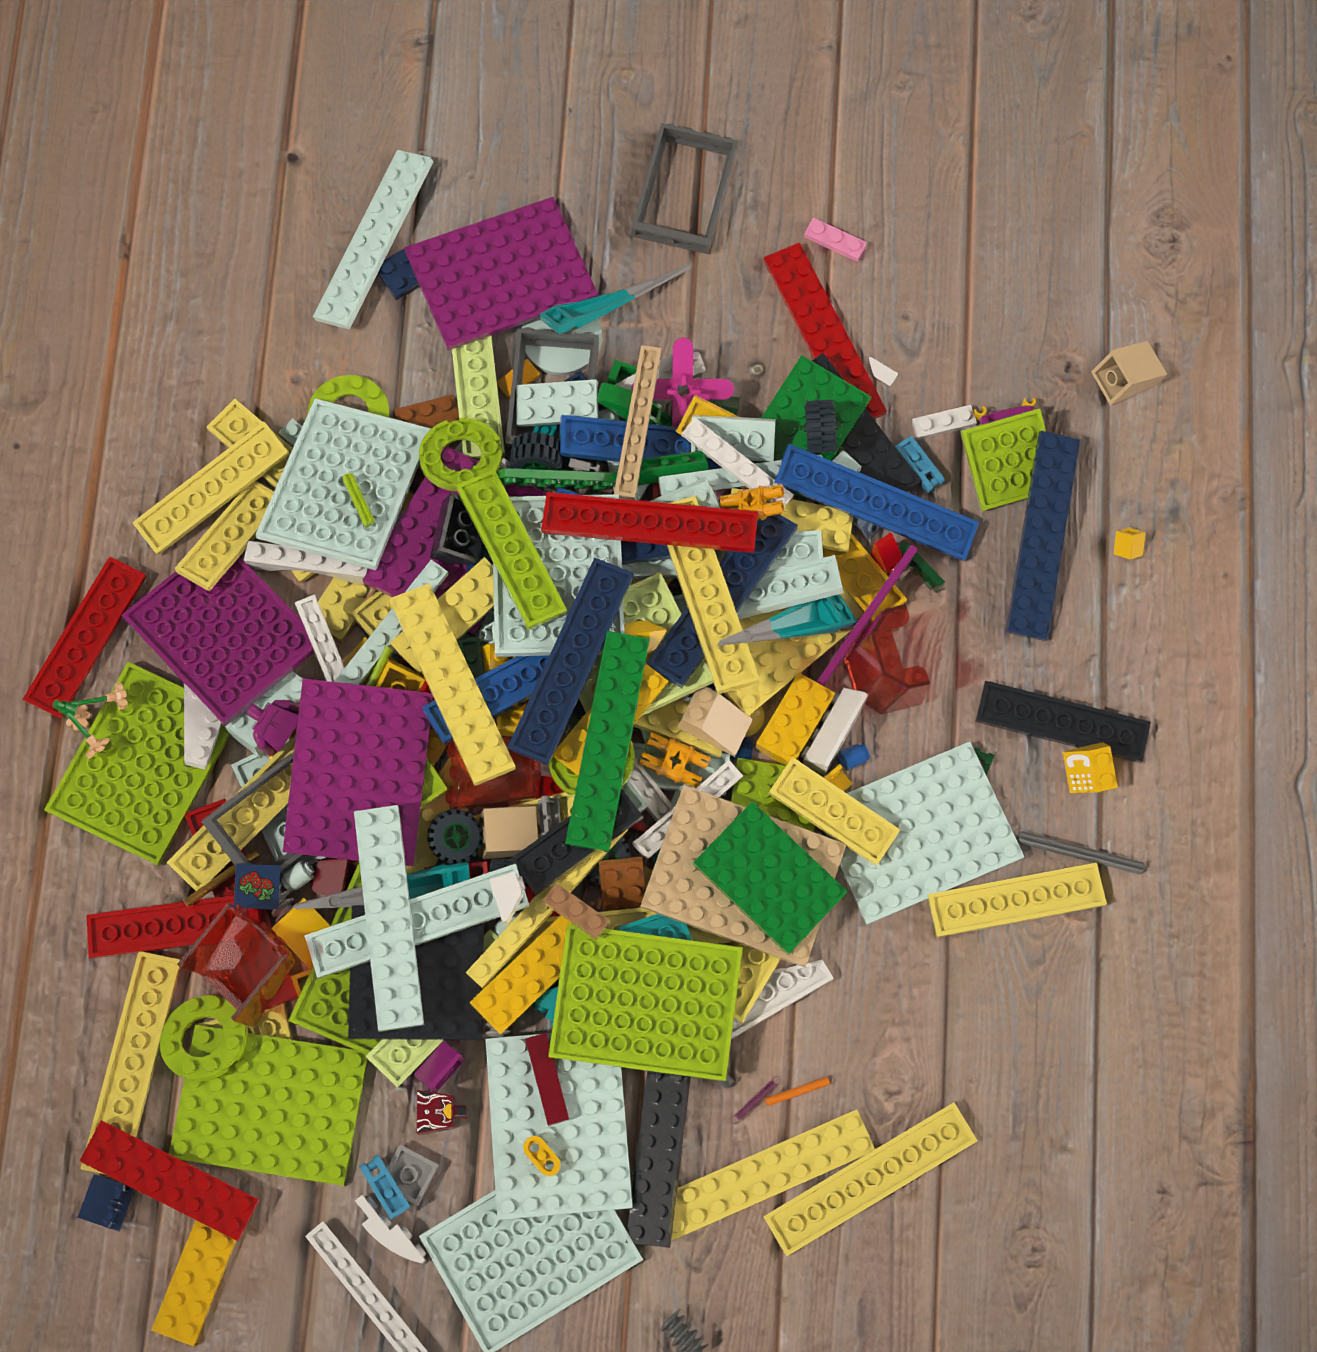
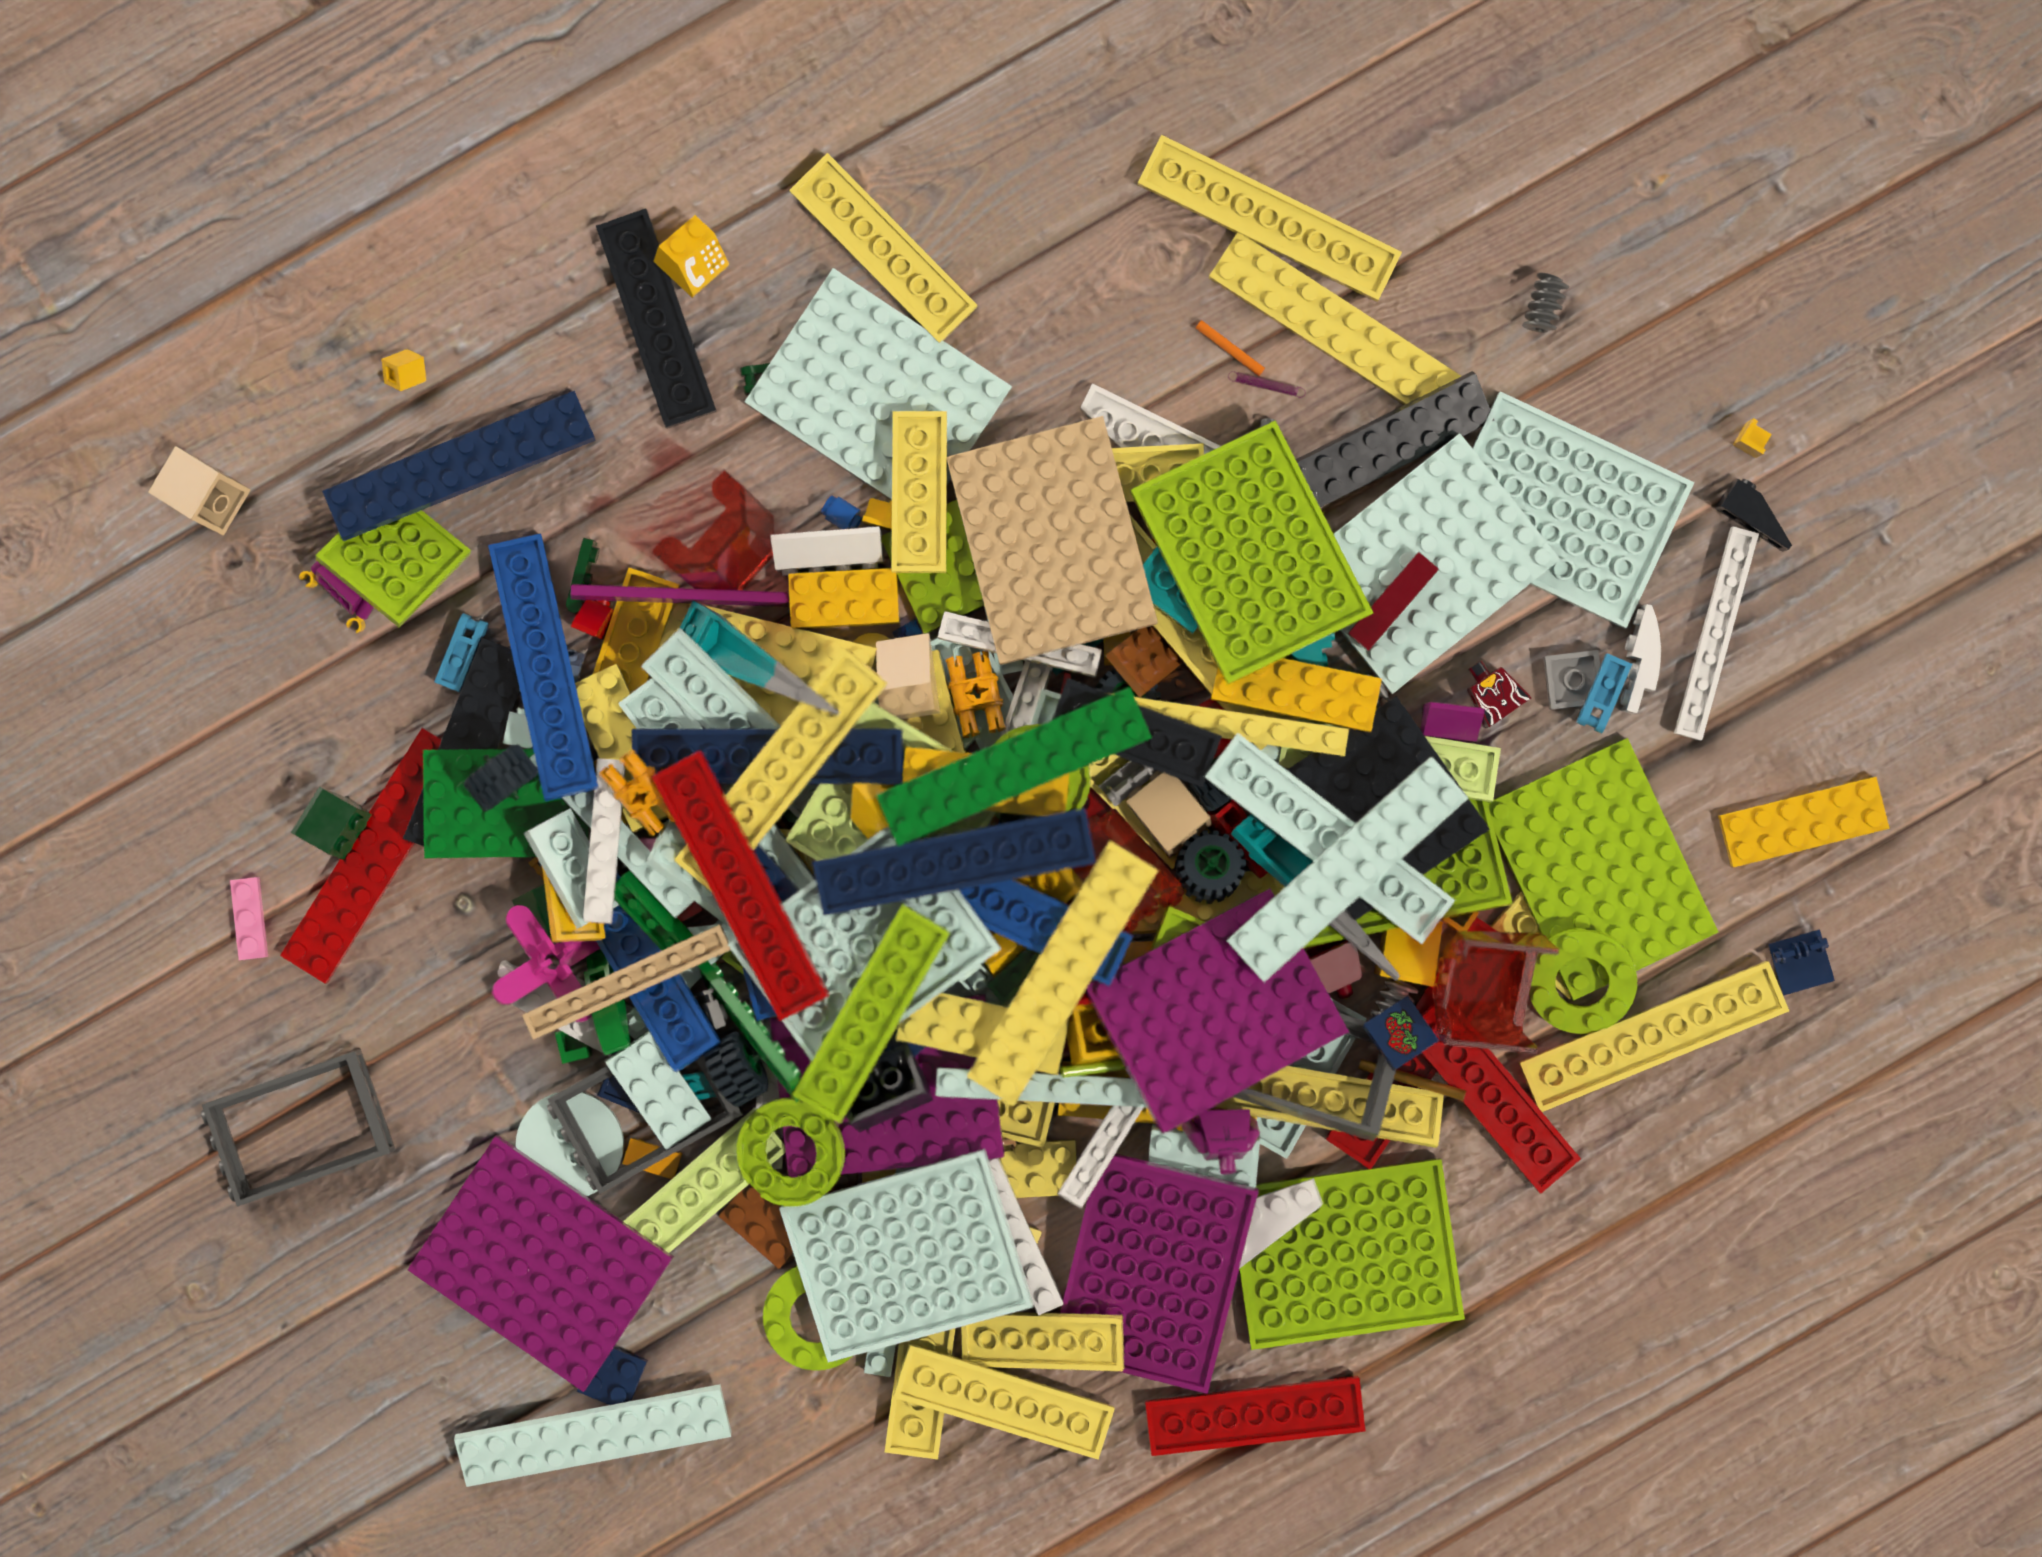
camera: 120 degrees left, 15 degrees up
(79, 715) = (1340, 1358): light nougat plant -> none
(169, 1180) = (1741, 913): red plate -> none
(297, 876) = (1357, 1002): light aqua brick -> none
(358, 499) = (918, 1224): lime axle -> none
(508, 894) = (1245, 760): white slope -> none
(542, 1156) = (1474, 555): yellow plate -> none
(576, 911) = (1210, 682): medium nougat plate -> none
(577, 314) = (533, 1138): teal plate -> none
(770, 878) = (1038, 509): green plate -> none
(861, 318) = (331, 823): none -> dark green slope
(882, 372) = (375, 763): white sticker -> none
(944, 422) = (392, 658): white plate -> none
(1081, 852) = (787, 213): dark grey axle -> none

